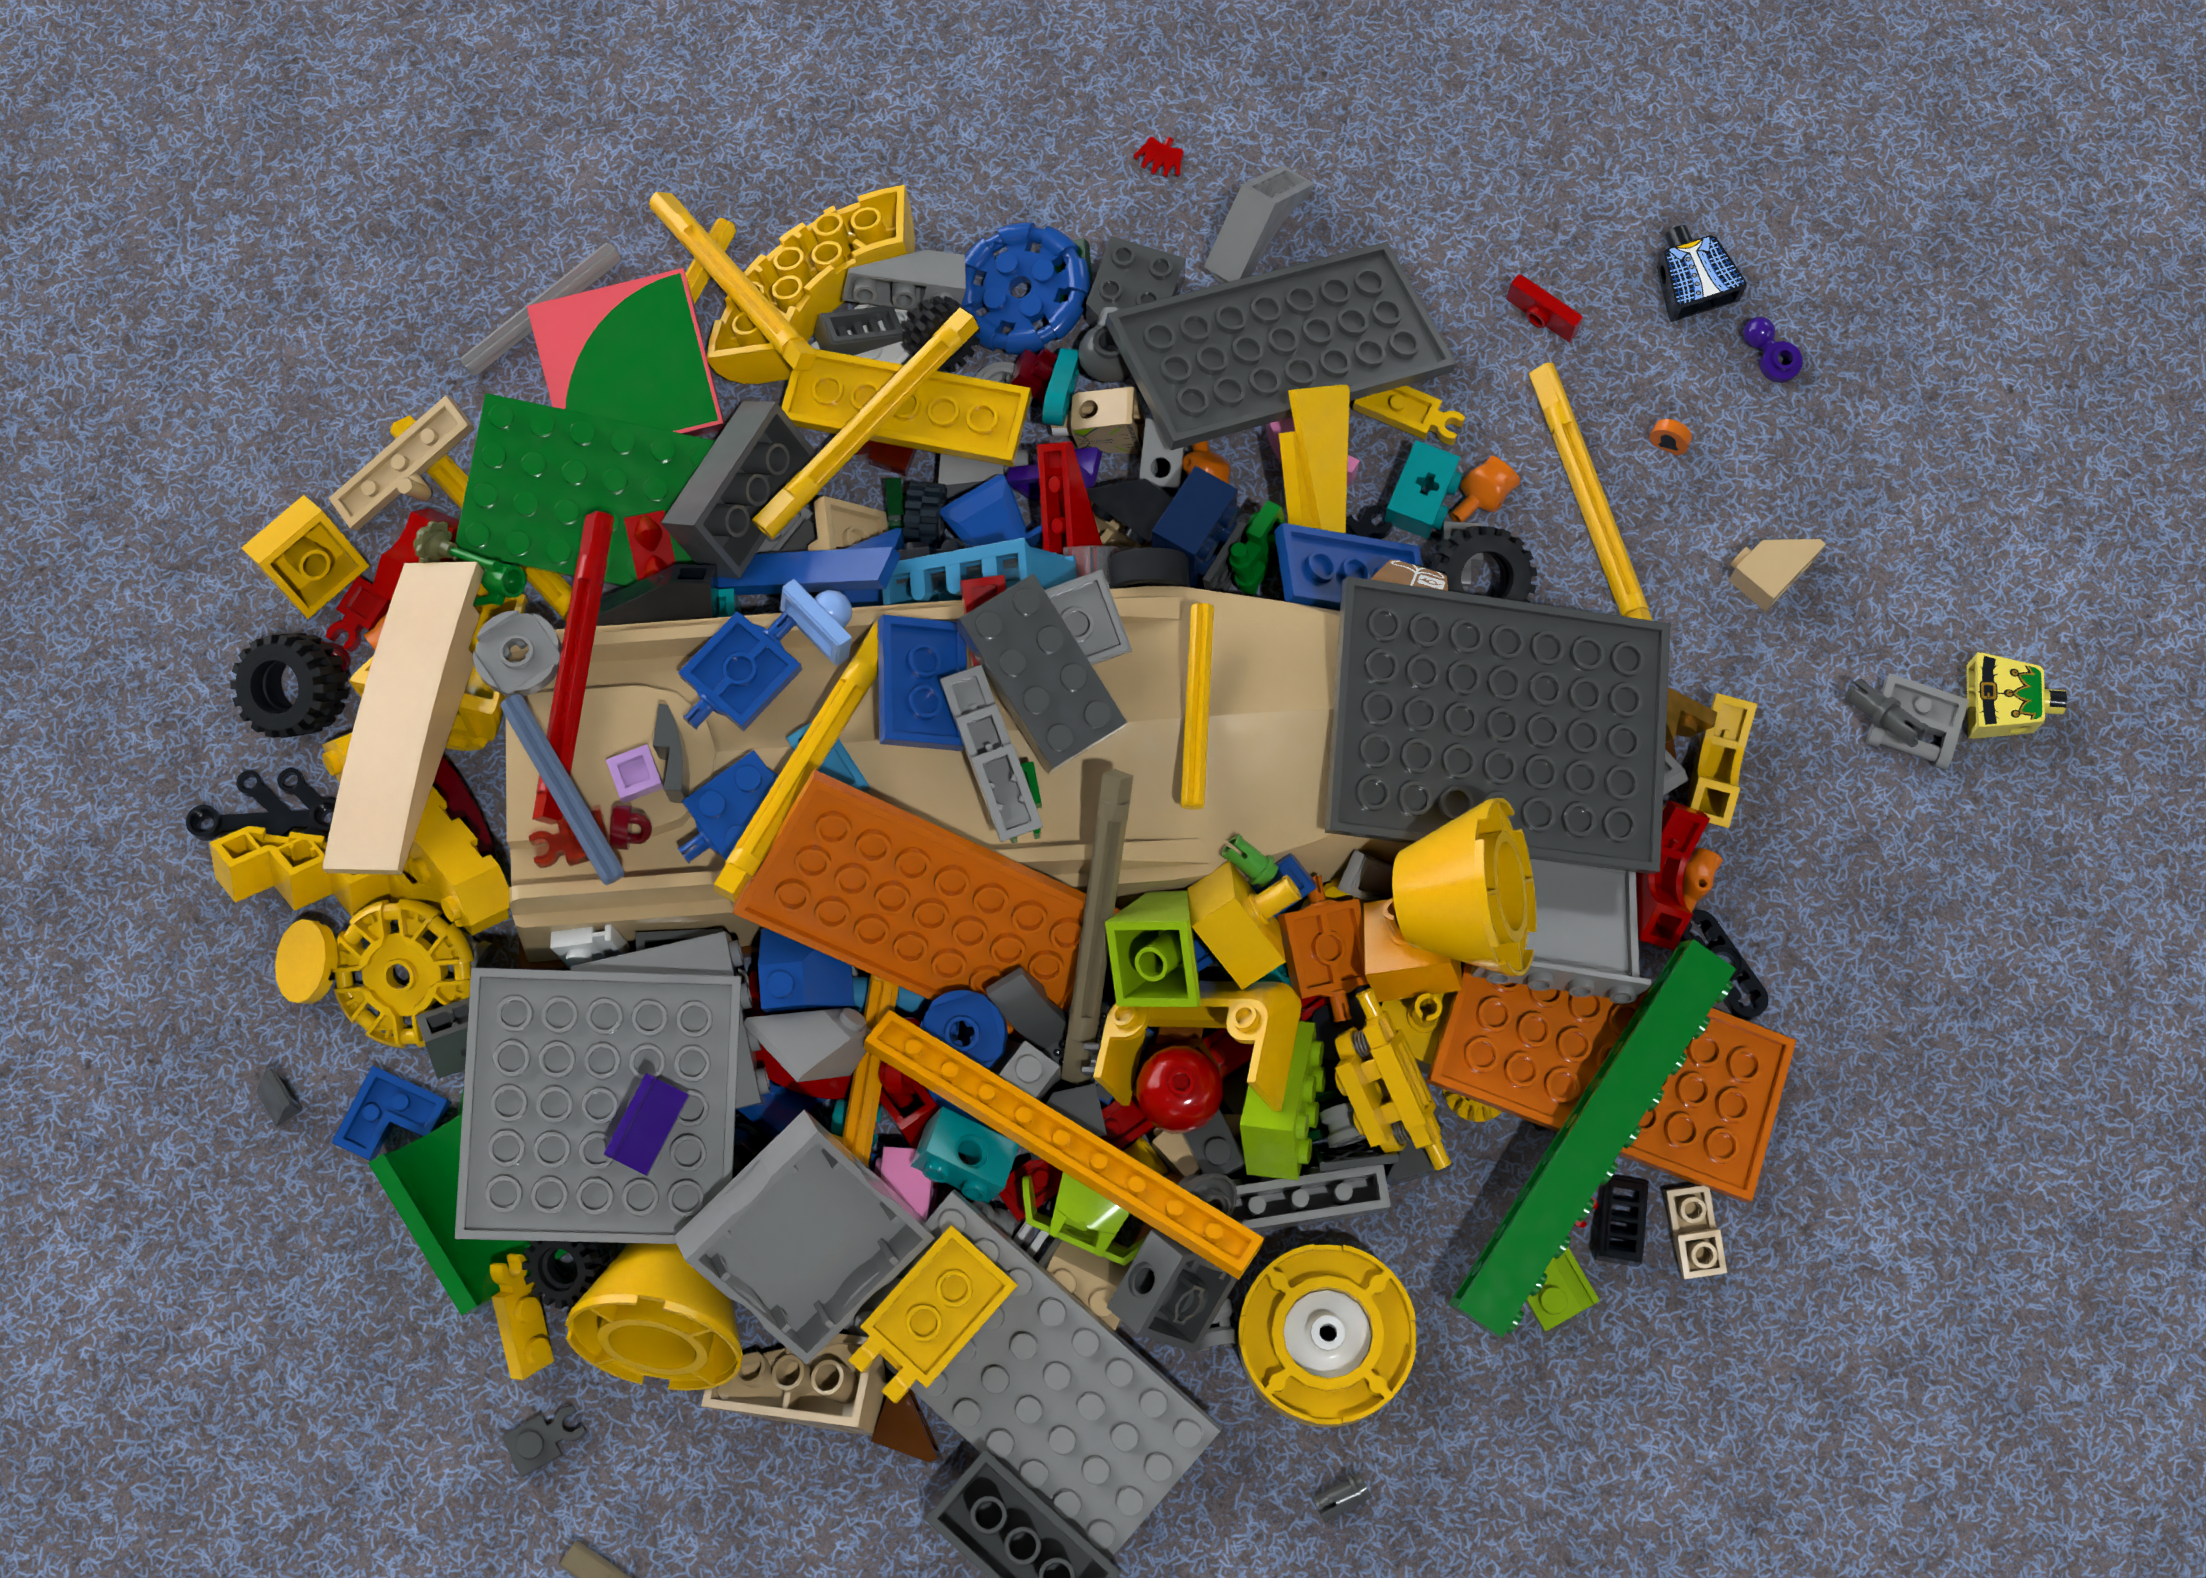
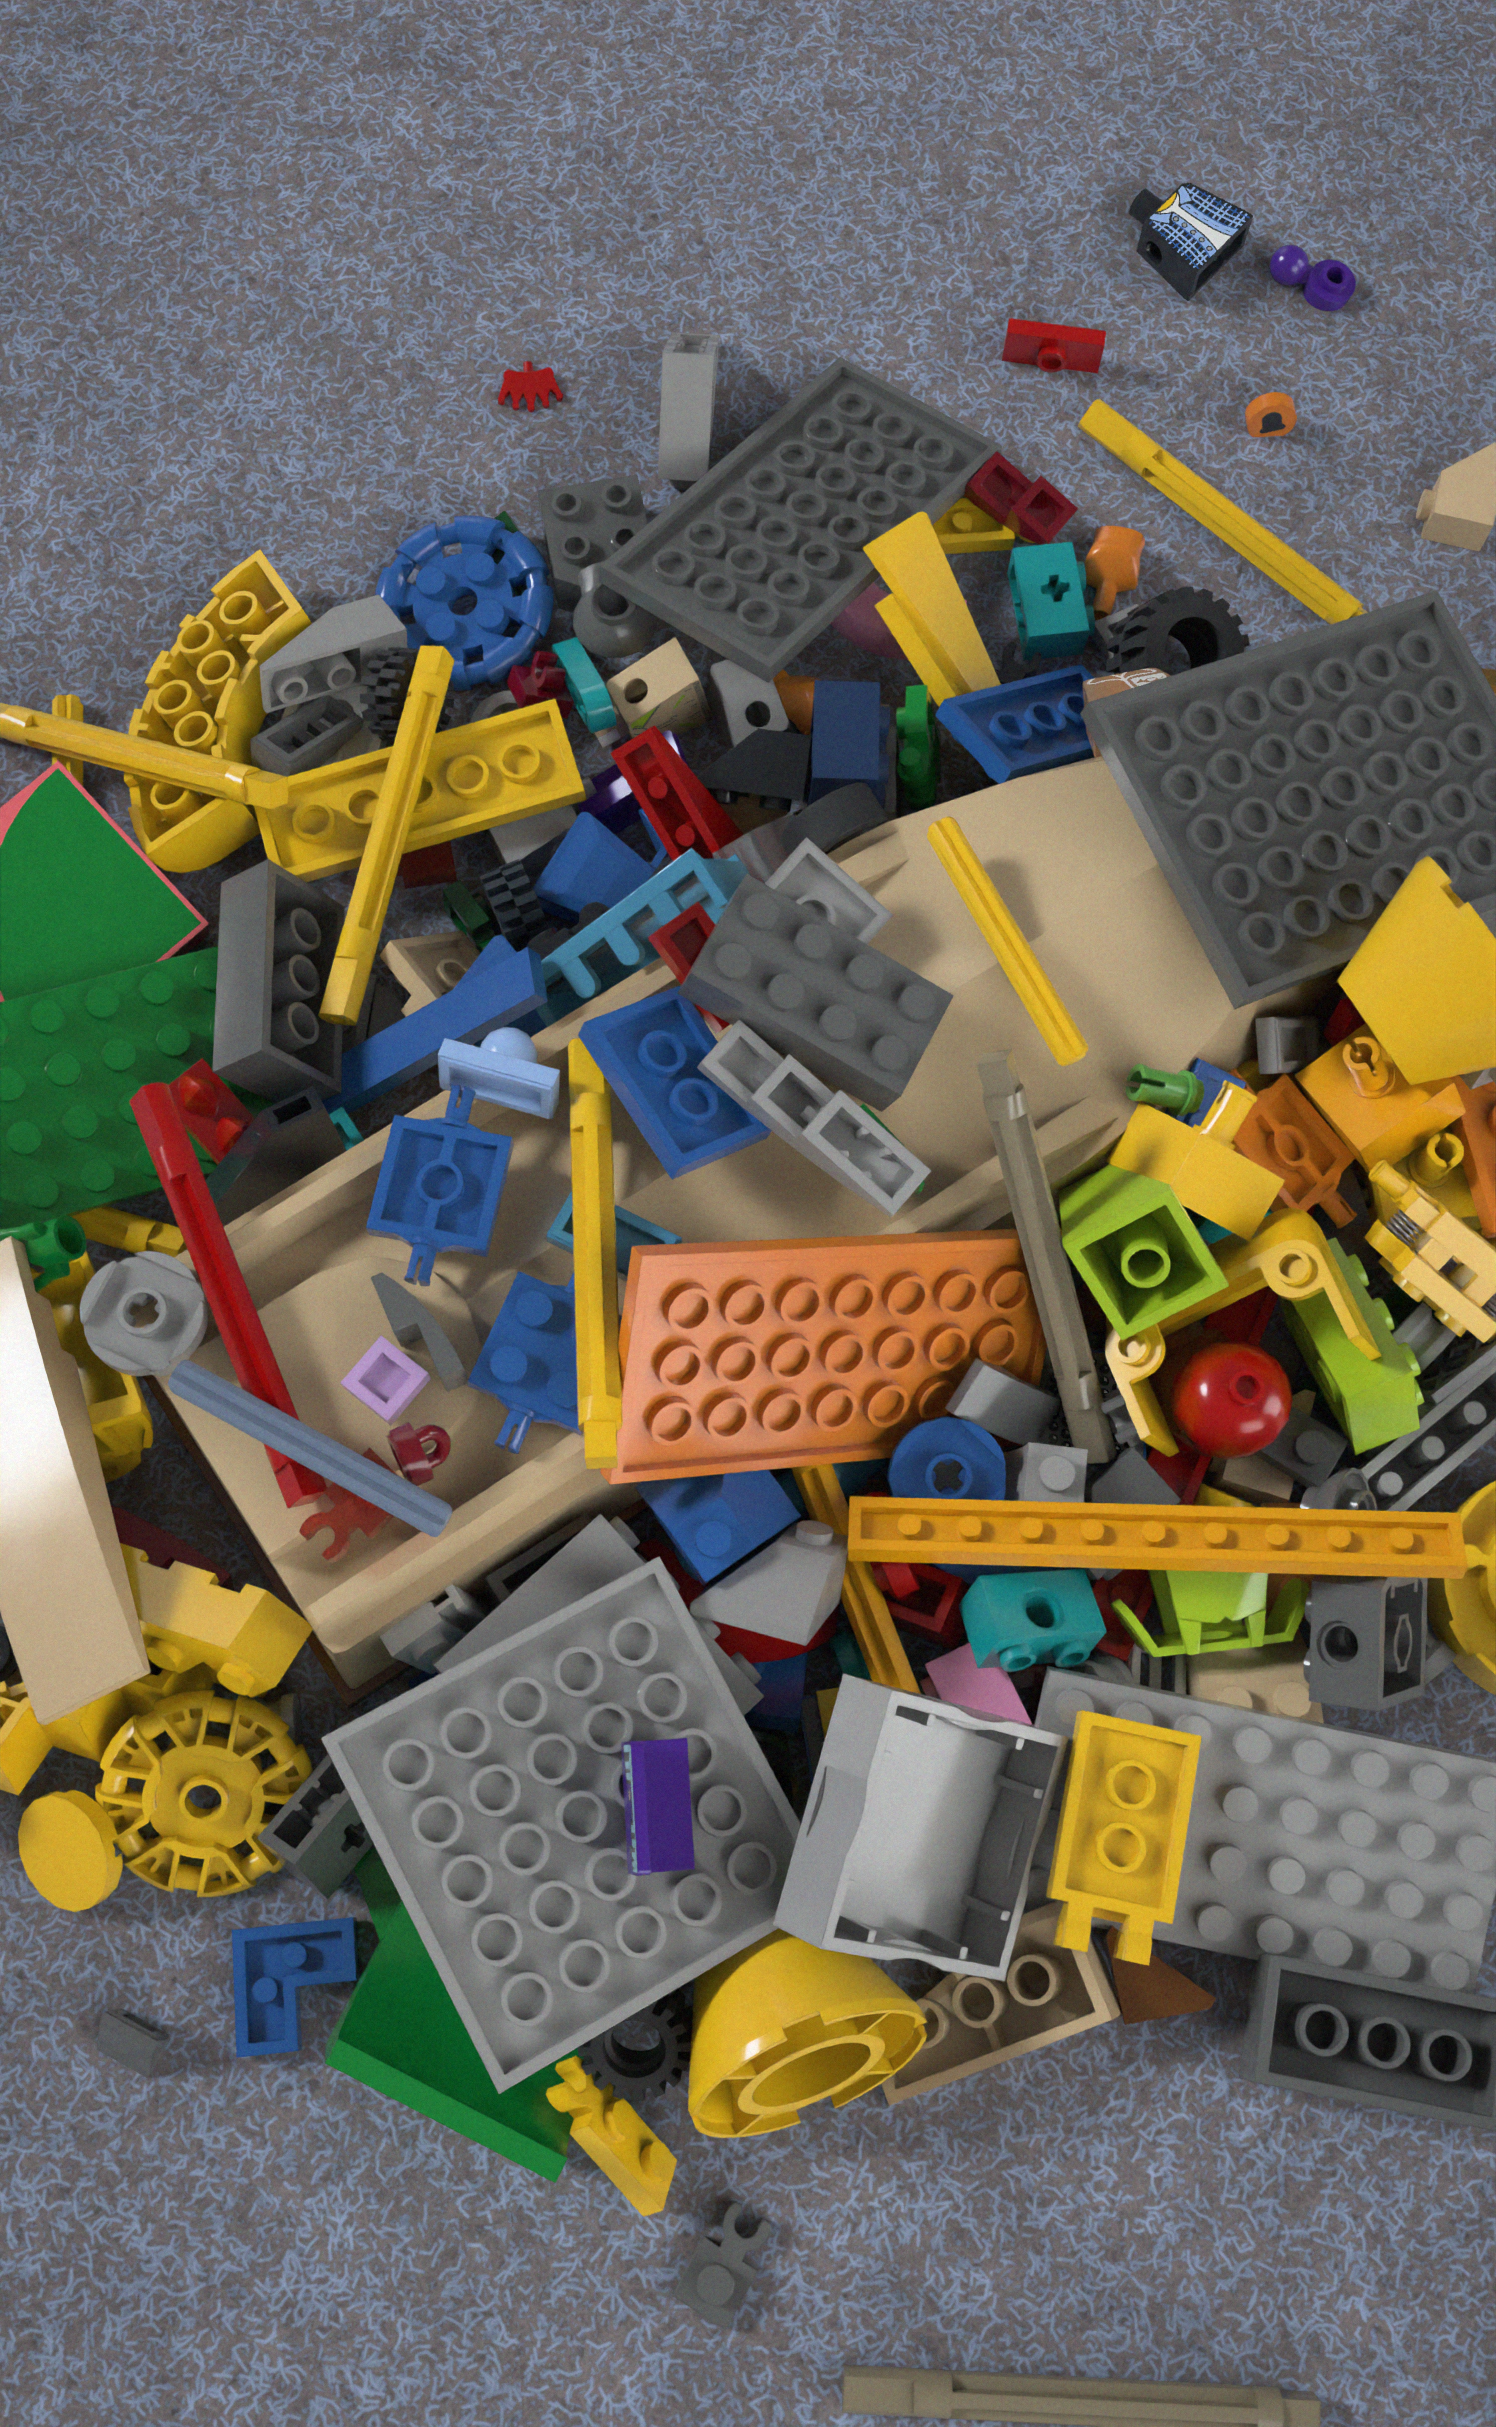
camera: 35 degrees left, 0 degrees up
(1443, 409) = (1025, 507): none -> dark red slope

